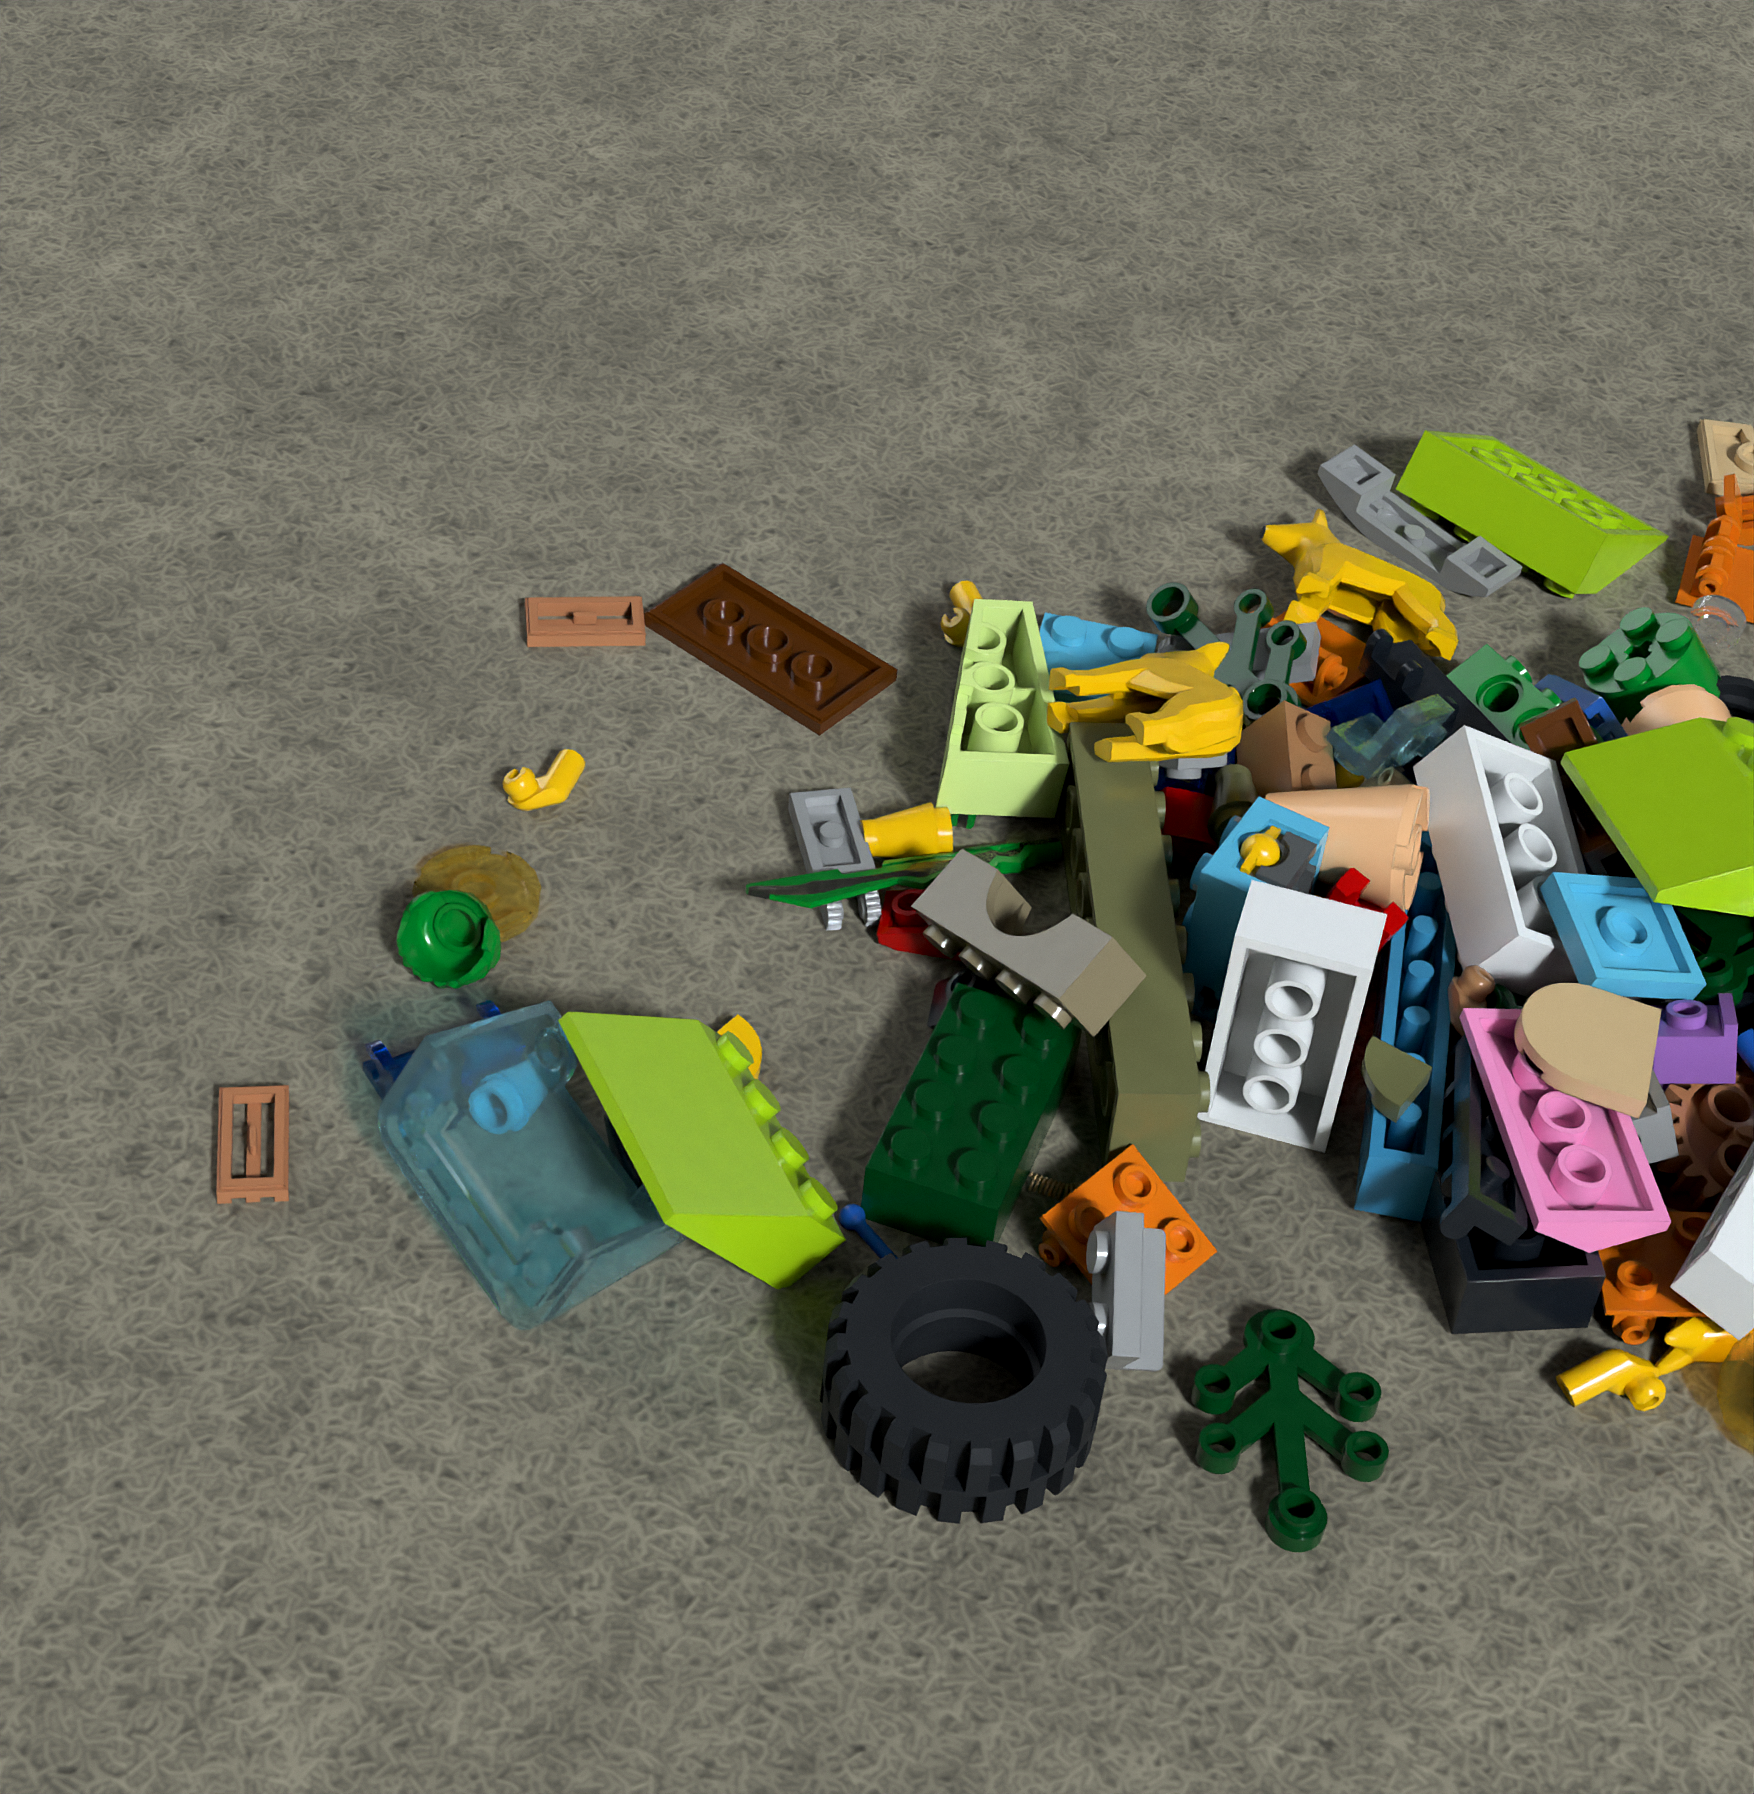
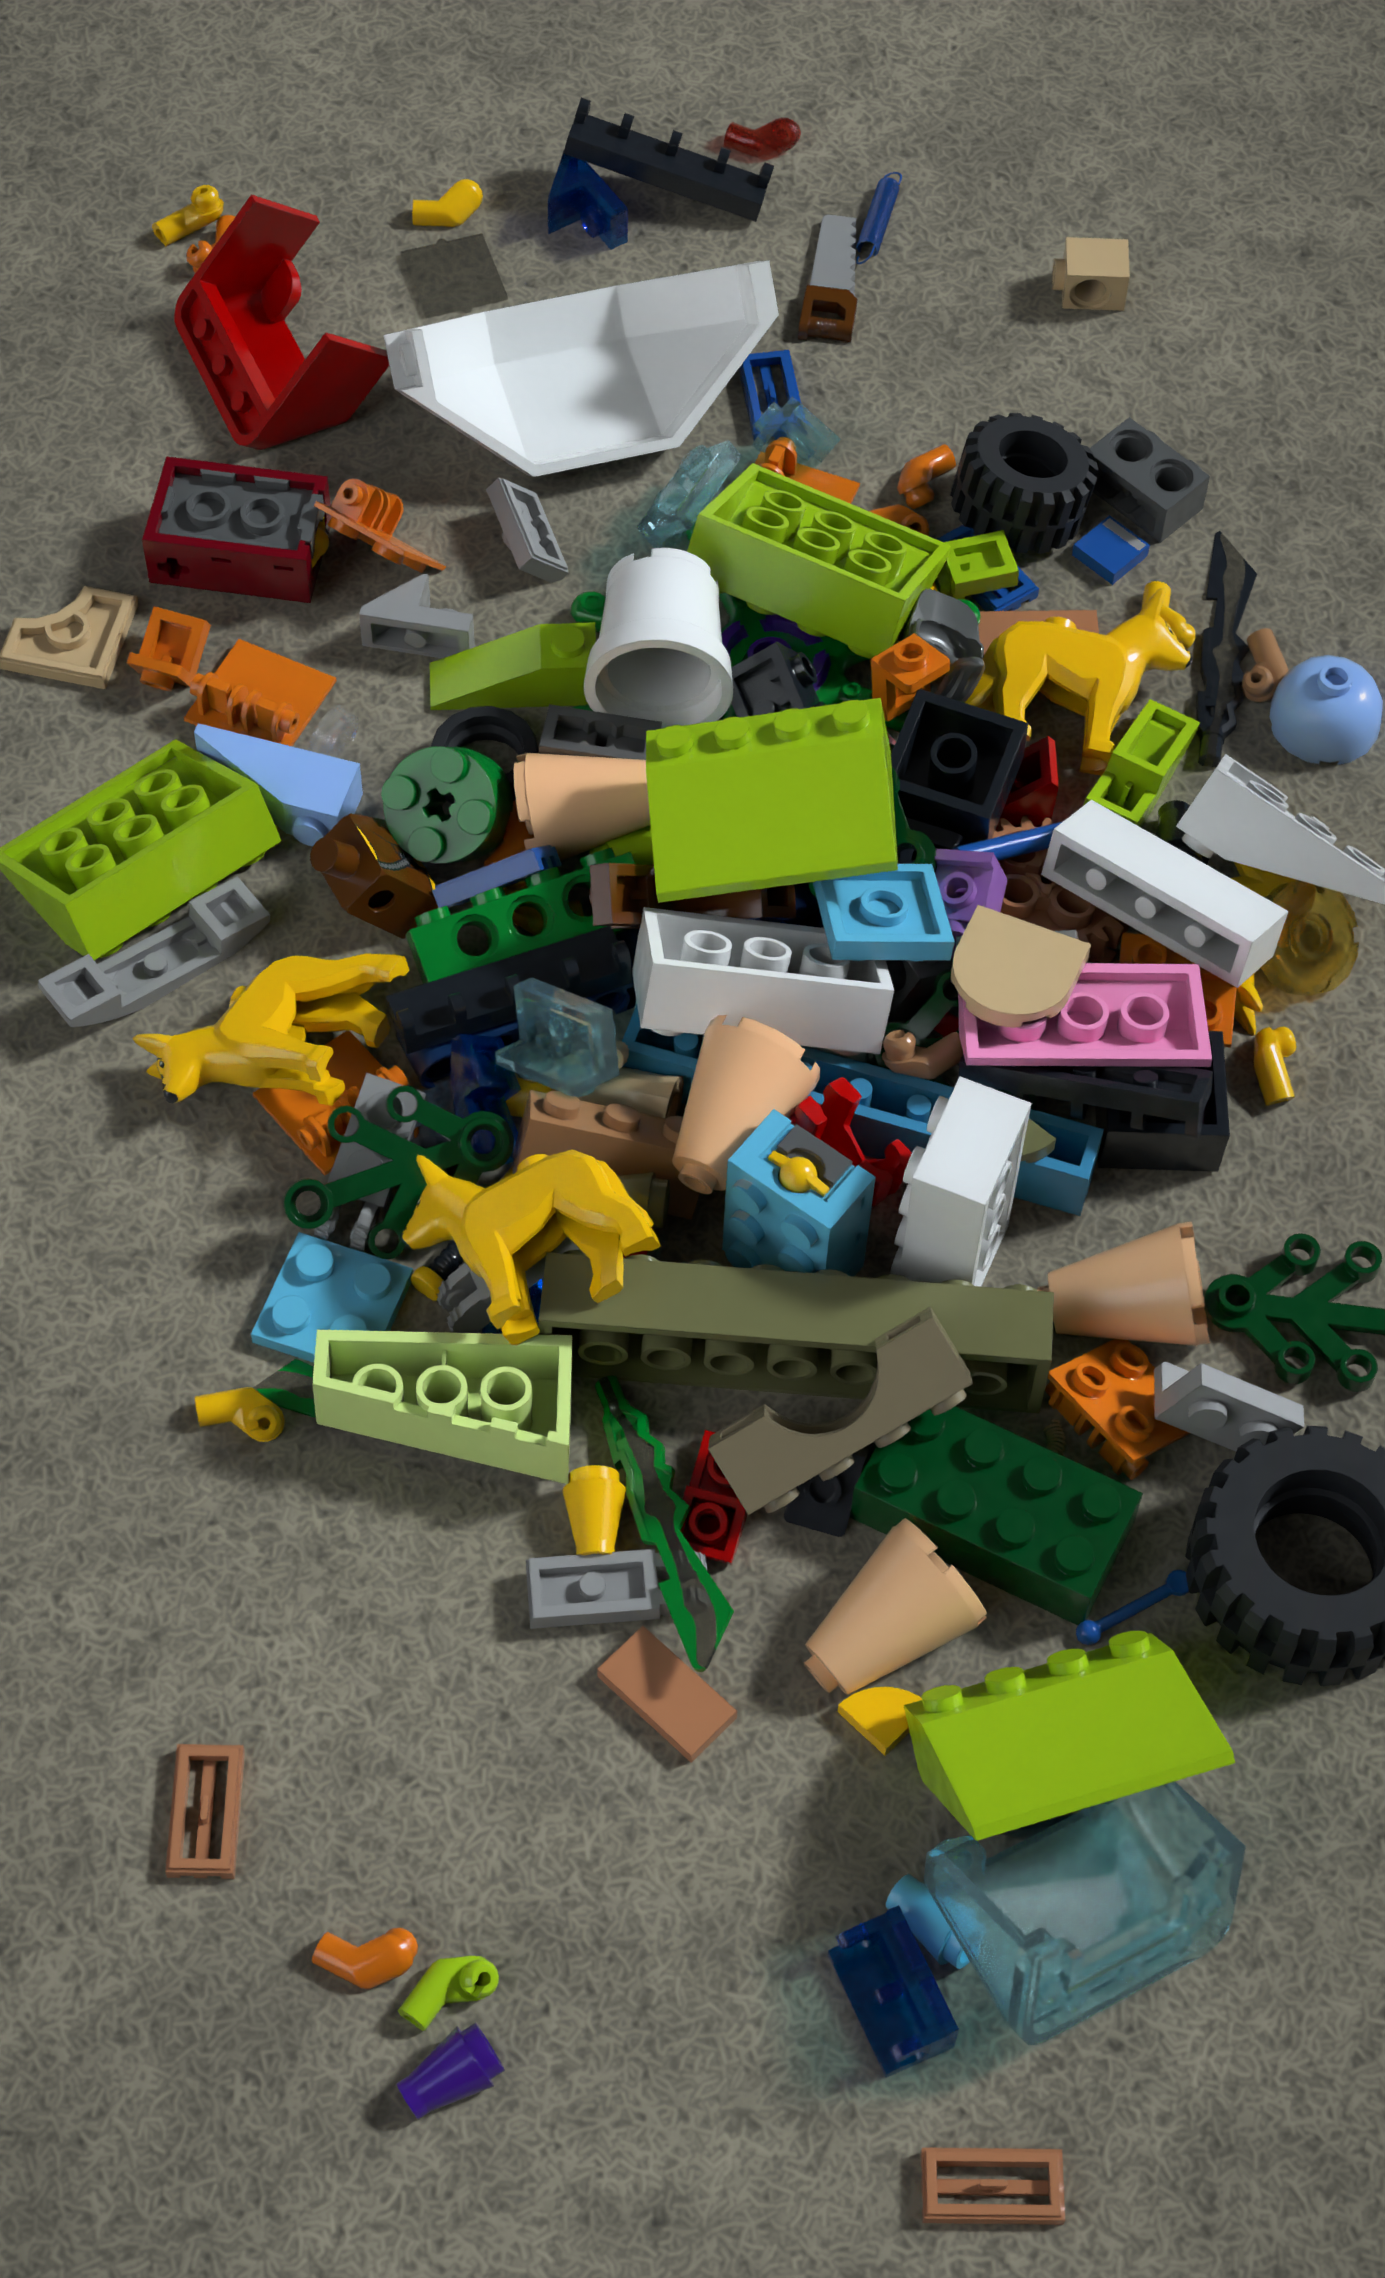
camera: 80 degrees left, 15 degrees up
(356, 772) = (451, 2072): none -> dark purple cone
(438, 769) = (449, 1982): none -> lime arm
(448, 938) = (740, 1973): green hair -> none
(454, 722) = (369, 1963): none -> orange arm
(515, 885) = (644, 1977): clear yellow tile -> none
(550, 789) = (485, 1868): yellow arm -> none
(721, 909) = (667, 1693): none -> nougat tile
(770, 648) = (268, 1620): reddish brown tile -> none
(841, 1037) = (892, 1613): none -> light nougat cone
(1262, 1237) = (1134, 1291): none -> light nougat cone
(1552, 623) = (365, 866): none -> reddish brown torso
(1639, 580) = (300, 787): none -> light blue slope

